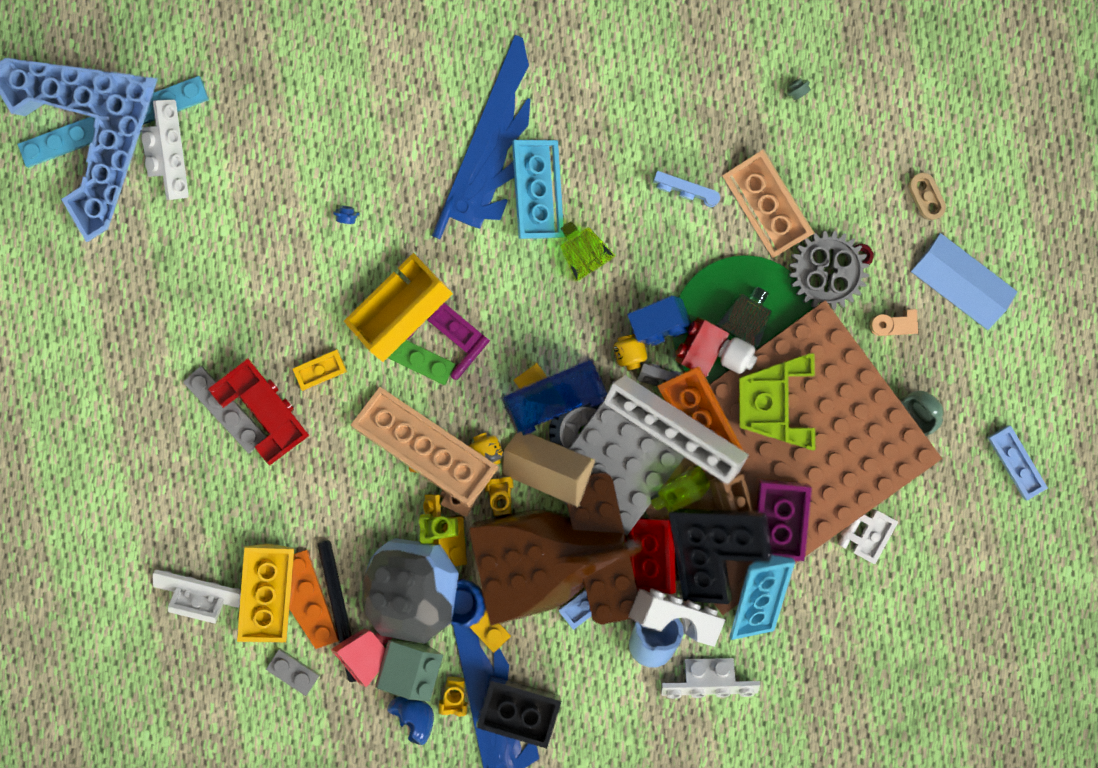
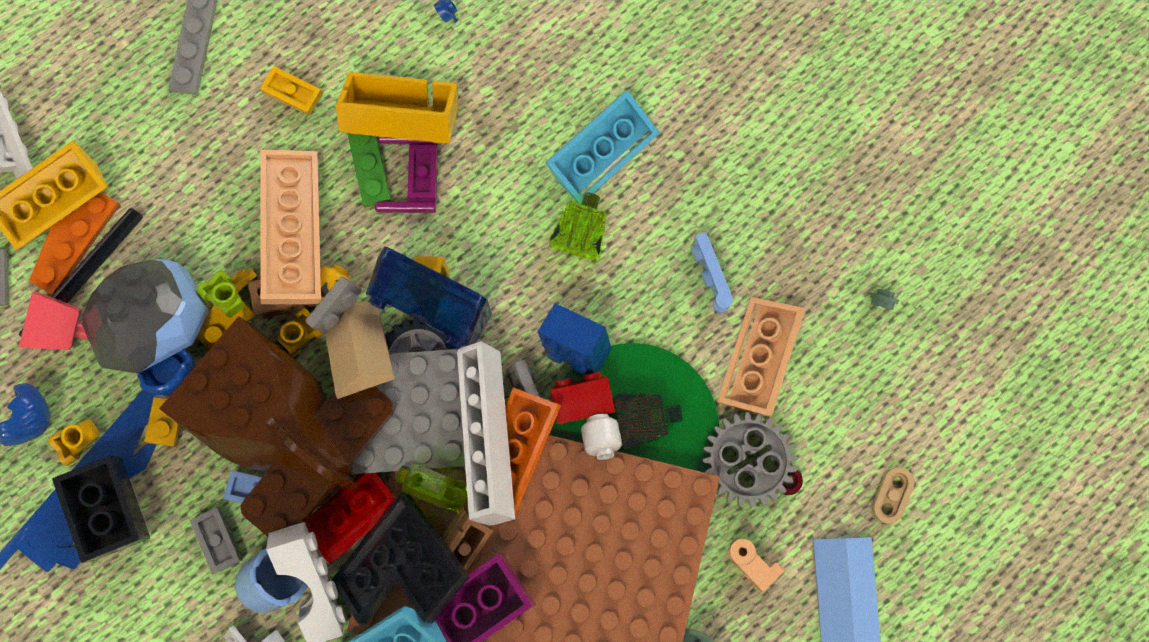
camera: 45 degrees right, 10 degrees down
(266, 406) = (220, 66): red bracket -> none
(409, 670) = (67, 376): sand green slope -> none
(485, 157) = (592, 85): blue animal -> none
(504, 453) = (333, 305): none -> light grey plate
(596, 654) = (216, 540): none -> light grey plate
(629, 352) = (524, 341): yellow head -> none
(766, 402) = (578, 499): lime wing -> none

